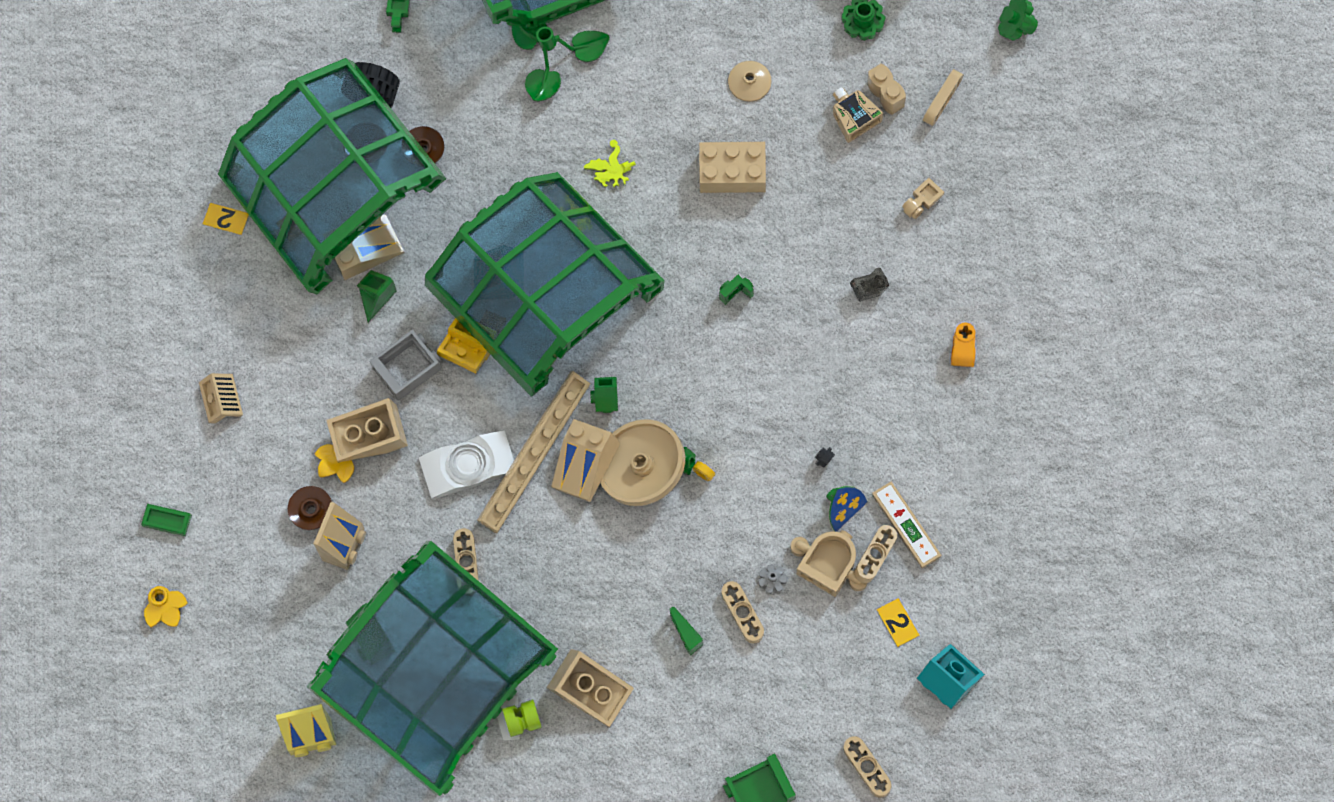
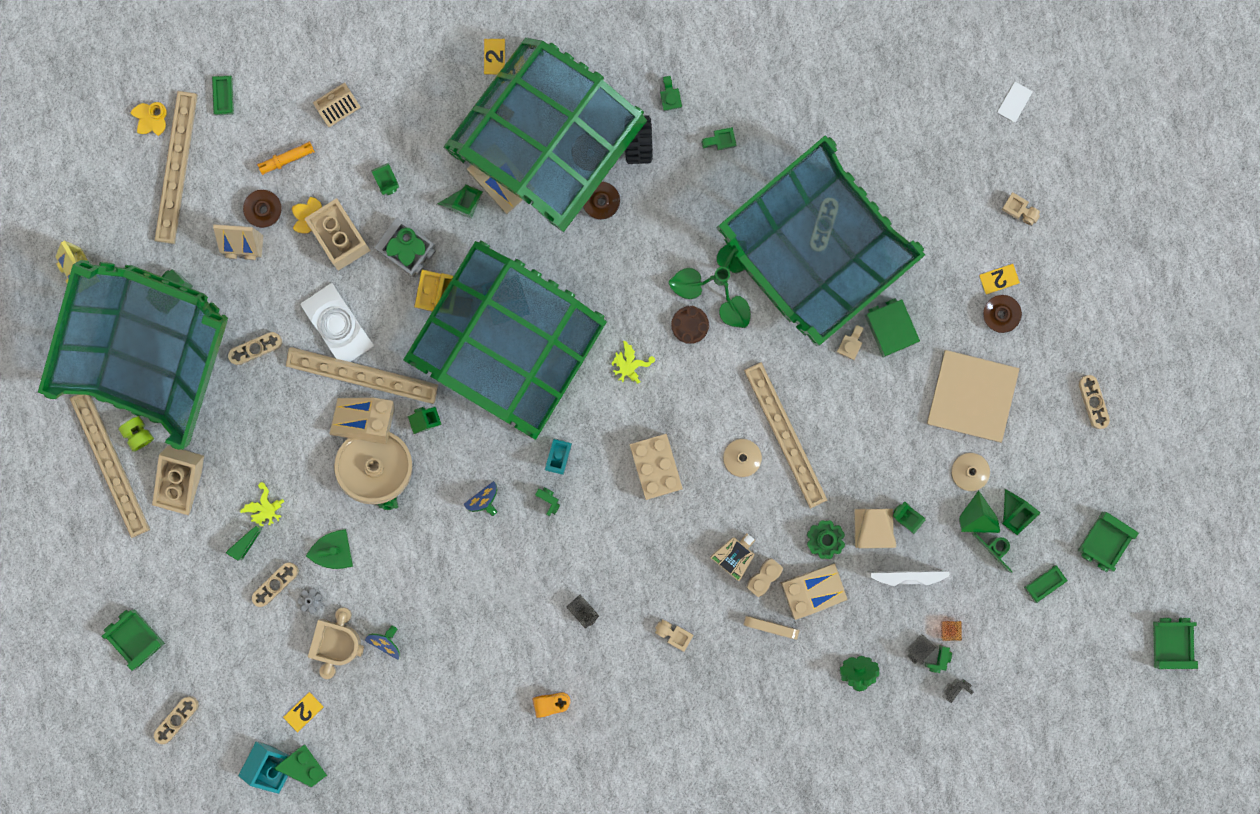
camera: 65 degrees right, 15 degrees up
(230, 594) = (176, 167): none -> tan tile
(262, 476) = (285, 158): none -> light orange pin
(322, 366) = (385, 179): none -> green bracket
(334, 49) = (670, 97): none -> green plate
(409, 358) = (405, 249): none -> green plate
(547, 762) = (110, 465): none -> tan tile
(588, 93) = (690, 324): none -> reddish brown dish
(653, 598) = (267, 509): none -> neon yellow piece
(690, 264) = (558, 456): none -> teal slope
(703, 471) = (382, 519): yellow tile -> none
(713, 353) = (483, 500): none -> shield
(722, 540) = (332, 551): none -> green shield
(738, 30) = (785, 435): none -> tan tile
(824, 456) = (423, 614): black plate -> none
(882, 548) = (346, 672): tan beam -> none
(906, 525) = (385, 697): tile -> none
(916, 47) = (814, 591): none -> tan slope
(960, 635) = (302, 767): none -> green wing

